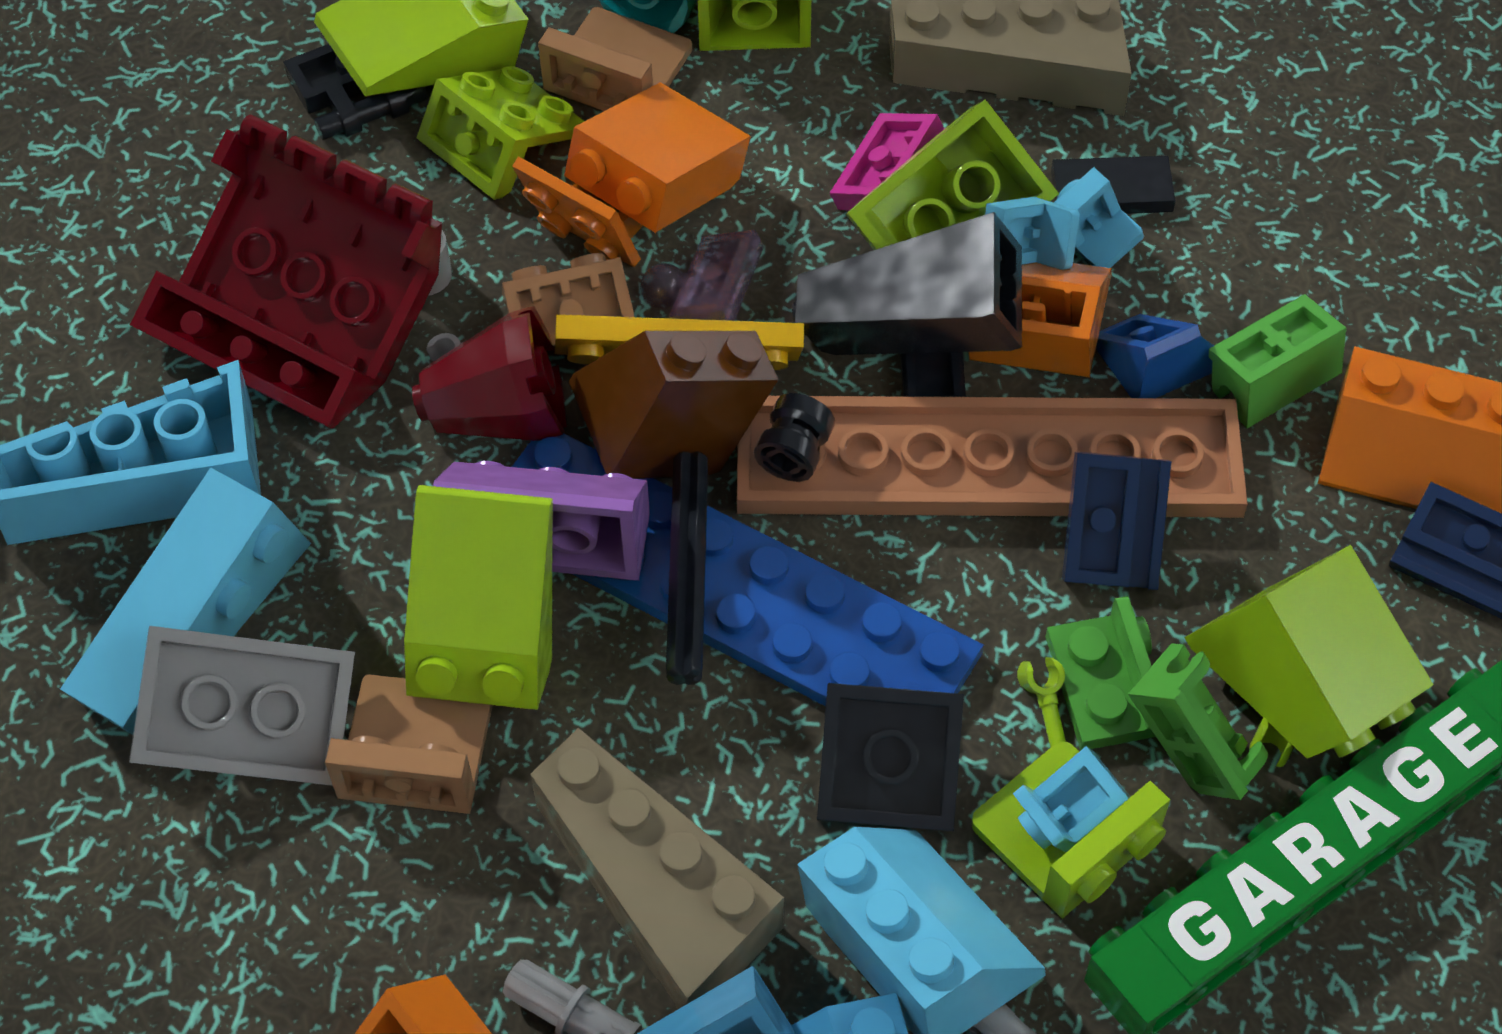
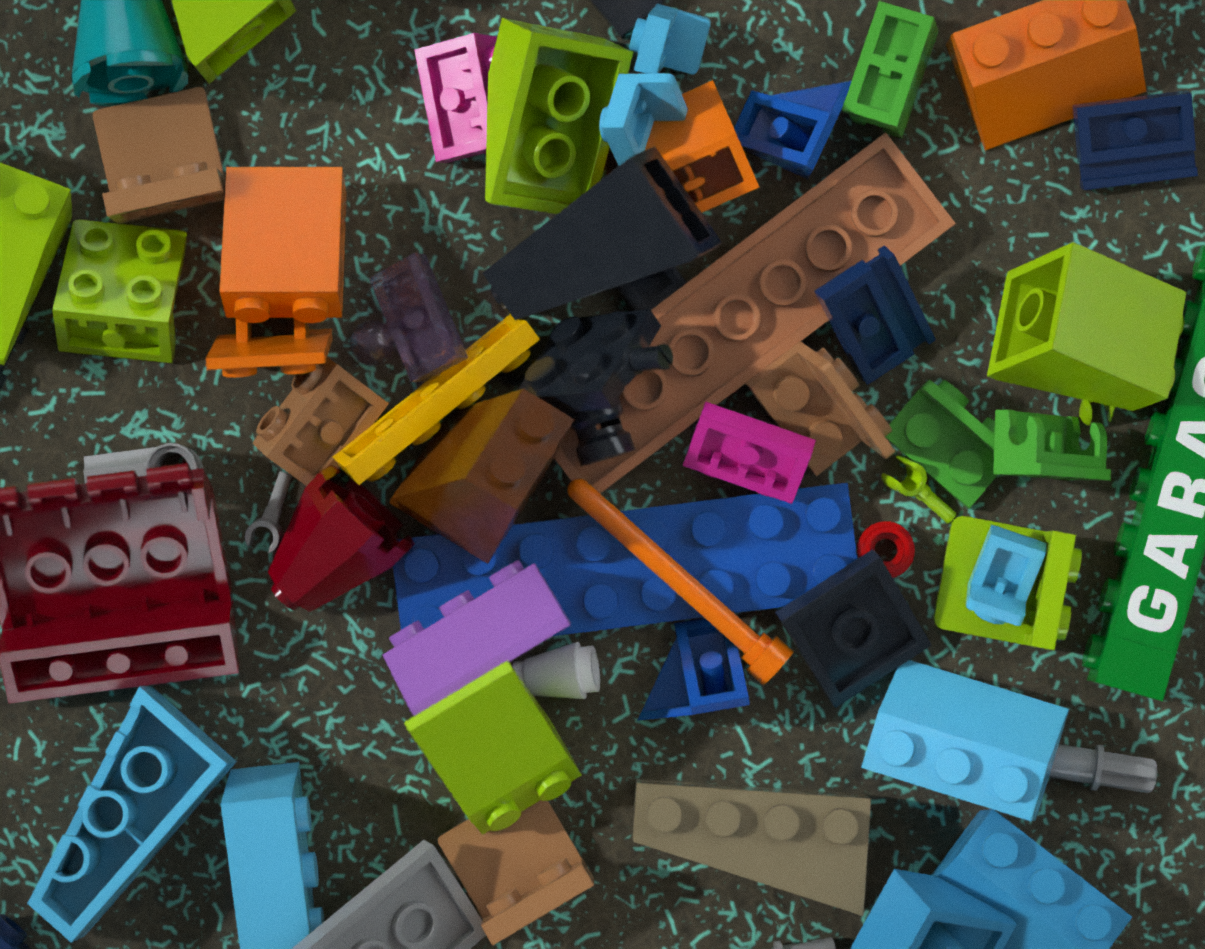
camera: 40 degrees left, 30 degrees up
(596, 619) = (561, 672): none -> white cone
(687, 569) = (602, 591): black axle -> none
(718, 710) = (698, 674): none -> blue slope
(787, 718) = (760, 652): none -> orange piece
(834, 372) = (593, 360): none -> black plate
(912, 546) = (749, 452): none -> dark pink bracket
(991, 715) = (898, 535): none -> red plate
(1003, 555) = (815, 399): none -> medium nougat bracket

